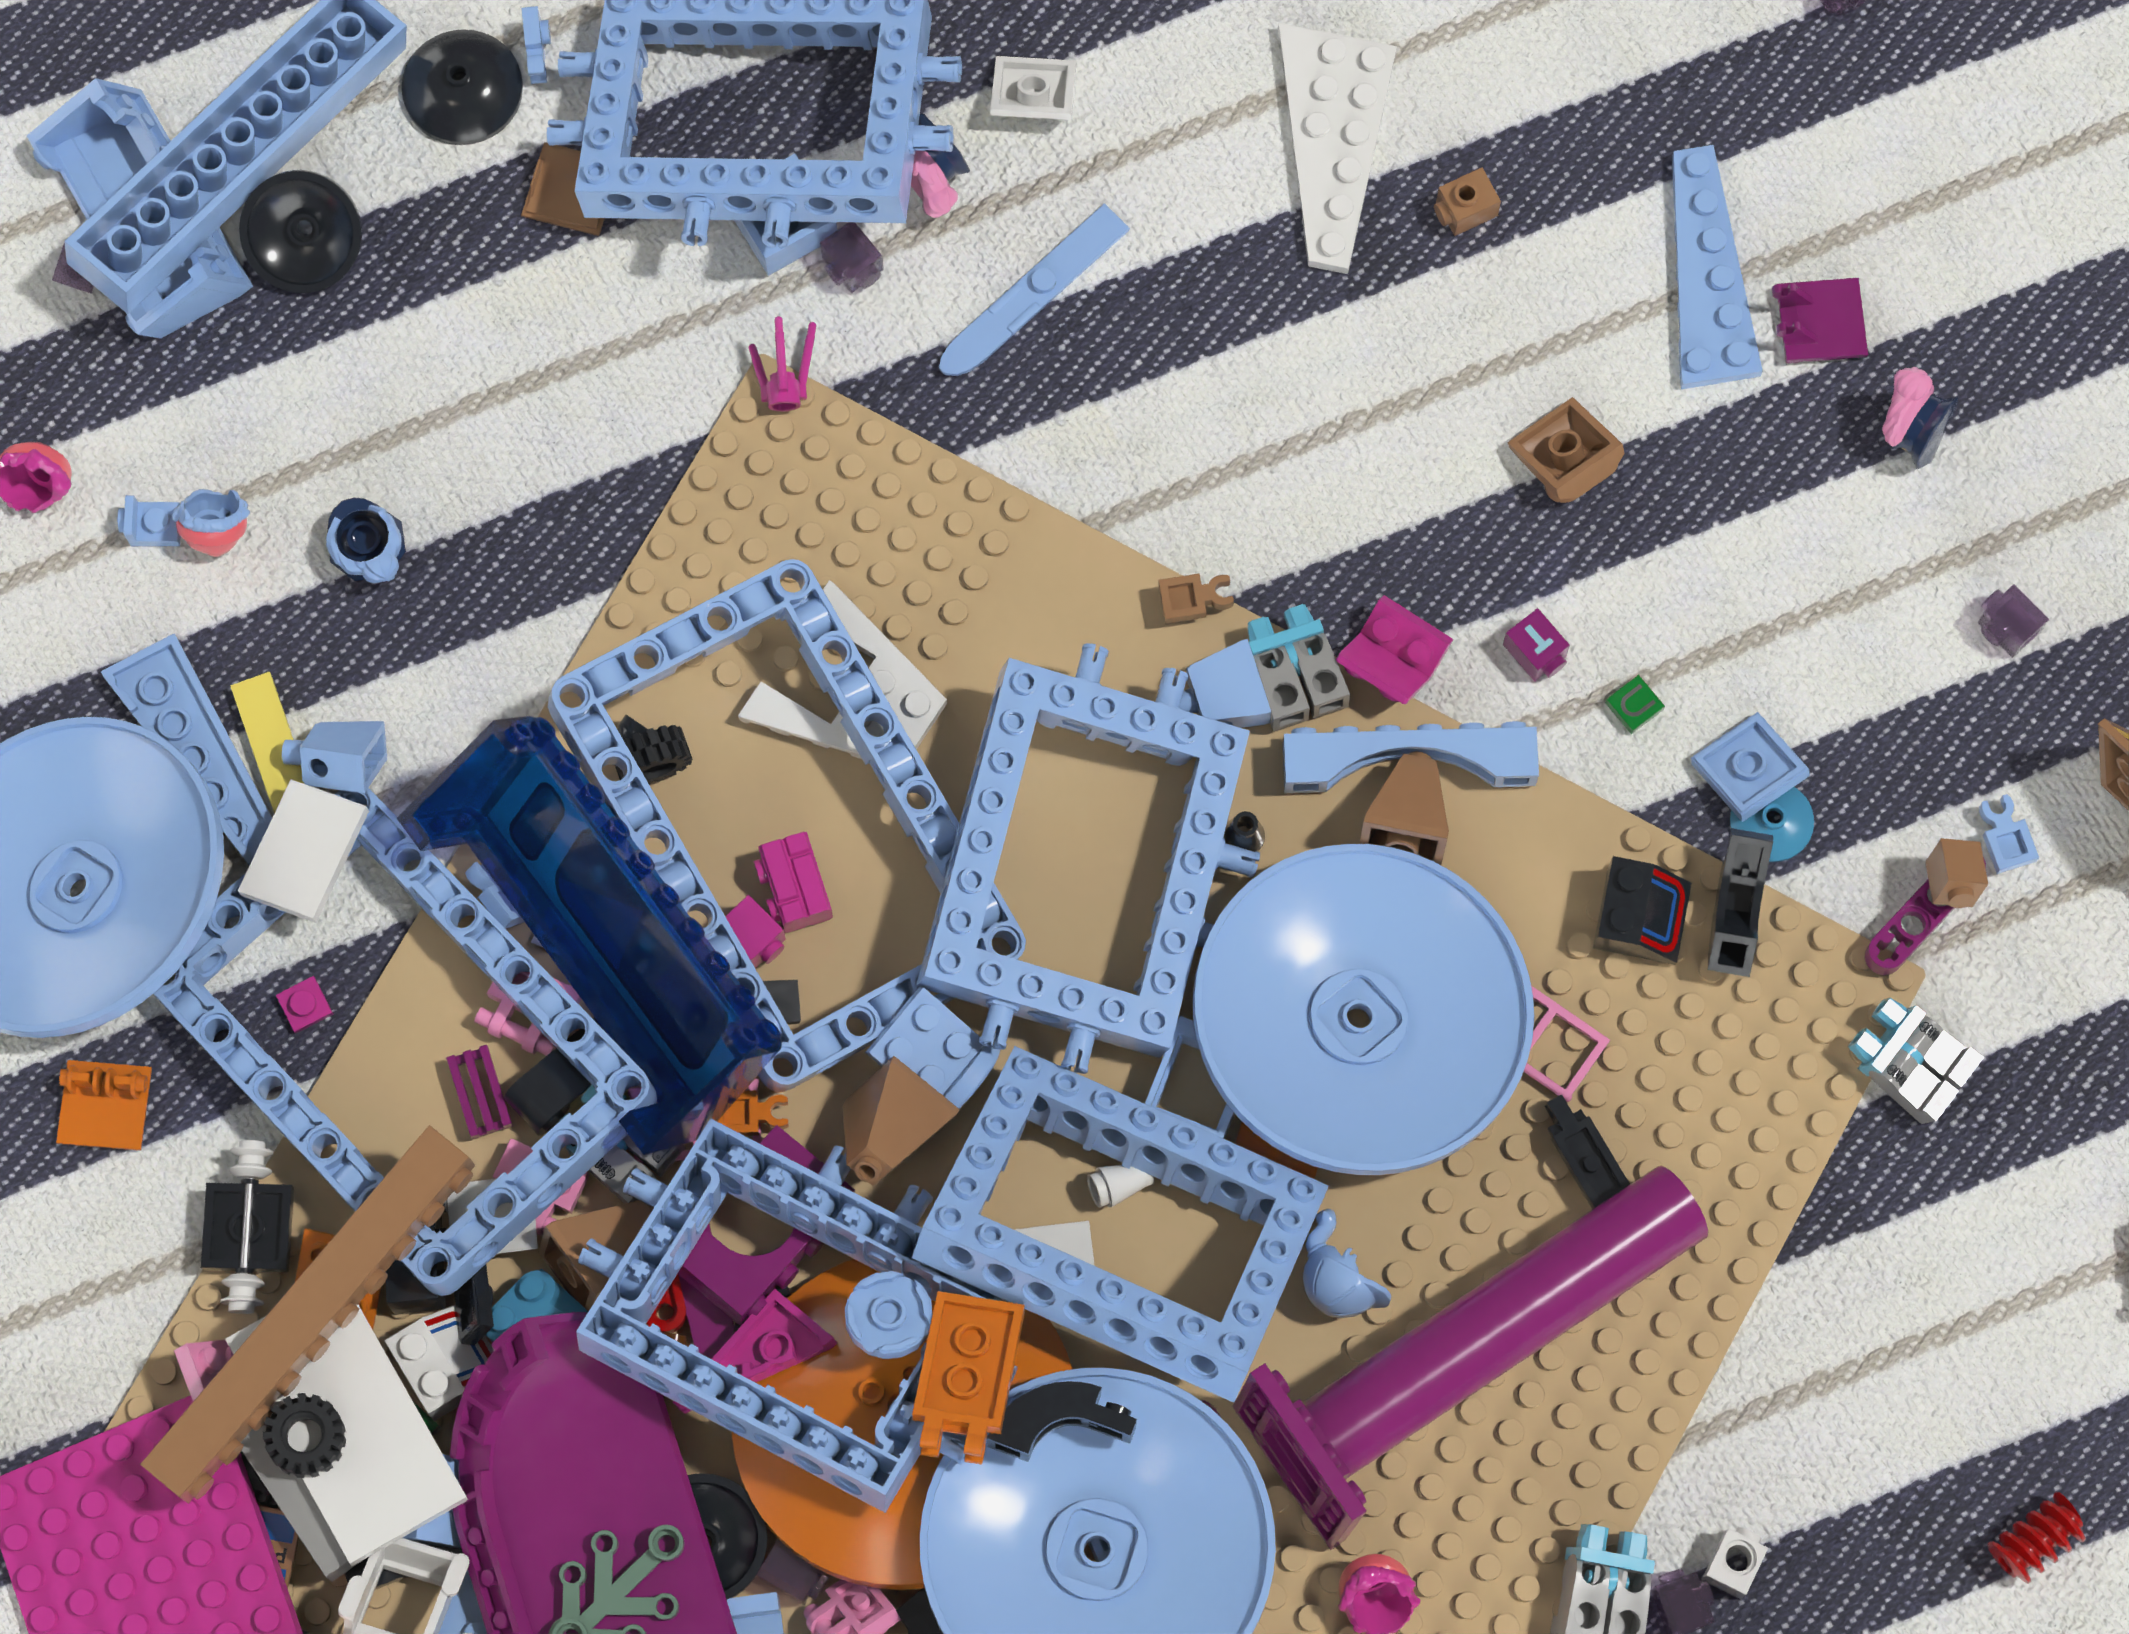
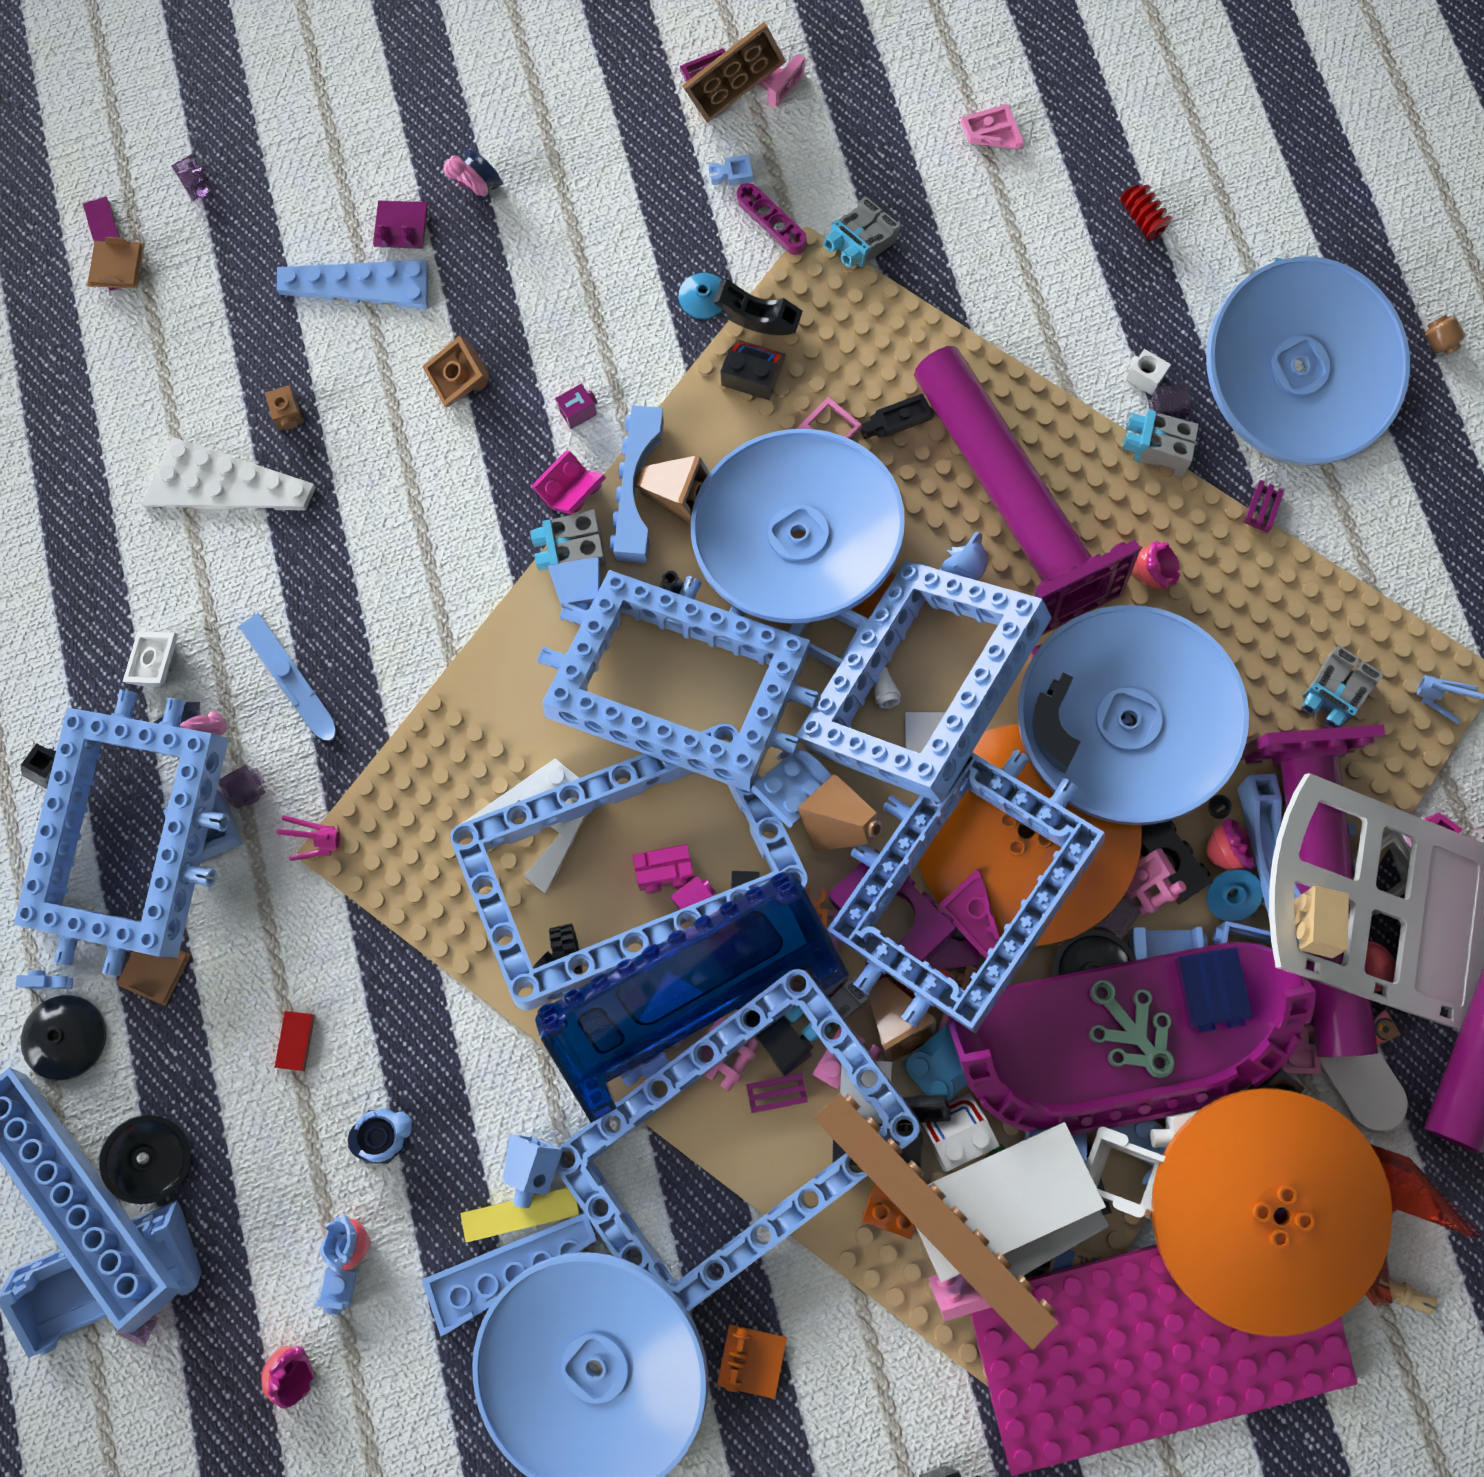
camera: 80 degrees left, 0 degrees up
(247, 1227) = (853, 1263): black plate -> none
(285, 1417) = (1031, 1216): black tyre -> none
(303, 851) = (596, 1197): white tile -> none
(304, 1004) = (698, 1210): dark pink plate -> none
(488, 402) = (294, 1041): none -> red tile
(888, 1315) = (979, 821): light blue tile -> none
(967, 1371) = (1023, 774): orange tile -> none
(1186, 598) = (512, 602): medium nougat plate -> none
(1635, 704) = (621, 358): green tile -> none
(1750, 766) = (670, 299): light blue plate -> none
(1956, 873) = (756, 190): medium nougat brick -> none
(2011, 620) = (604, 148): clear purple brick -> none

